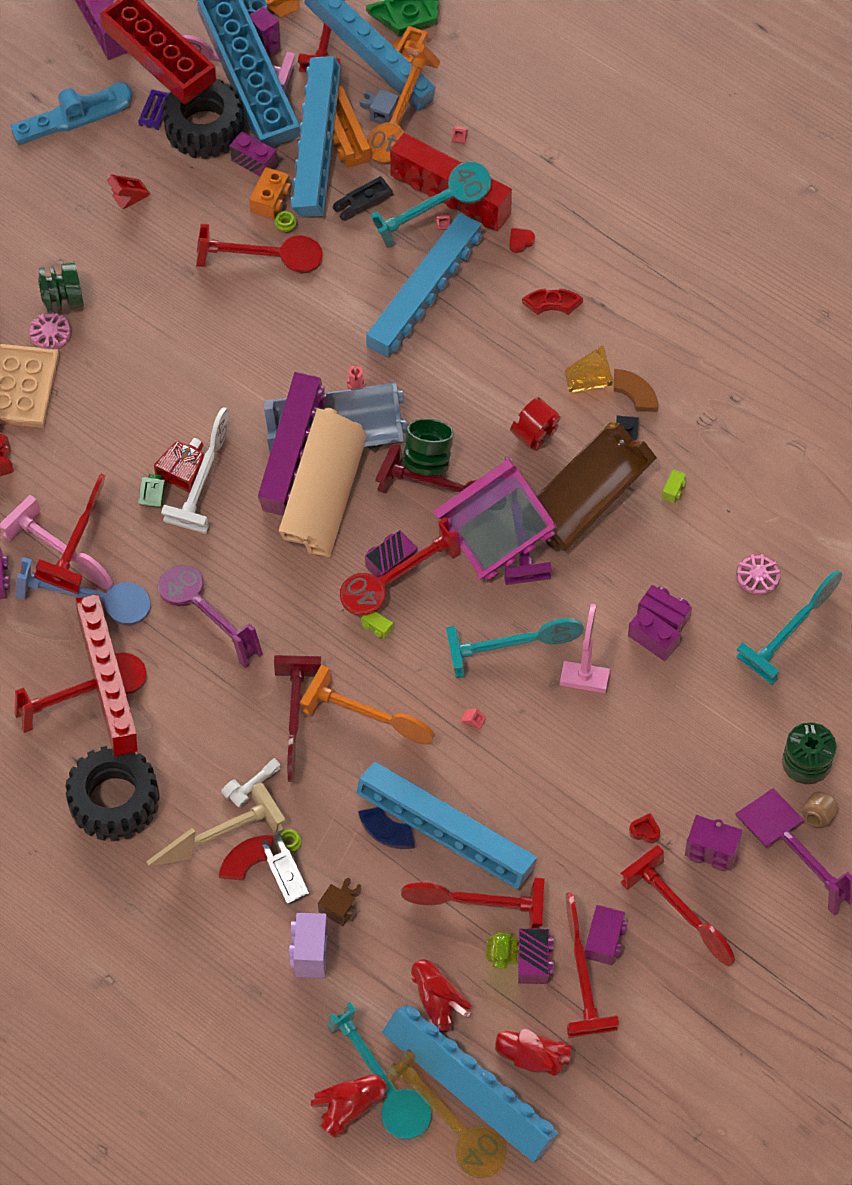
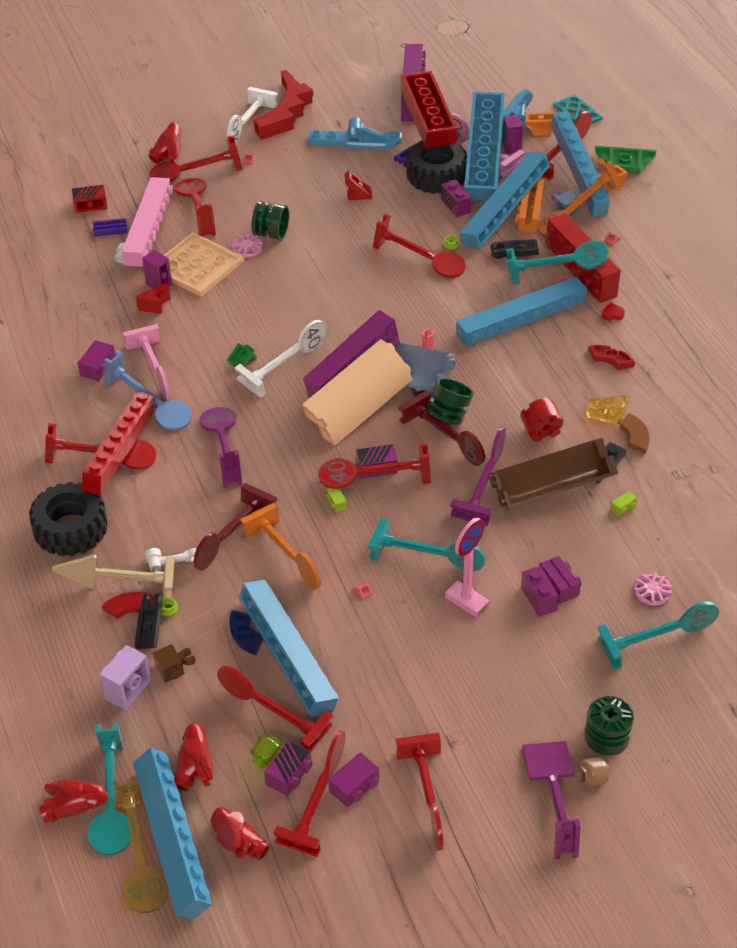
camera: 30 degrees right, 15 degrees down
(59, 574) = (194, 345): red piece -> none
(181, 464) = (271, 346): red torso -> none
(270, 193) = (451, 221): orange brick -> none
(497, 519) = (466, 460): clear light blue panel -> none
(645, 829) = (441, 722): red tile -> none
(713, 843) = (484, 752): magenta brick -> none

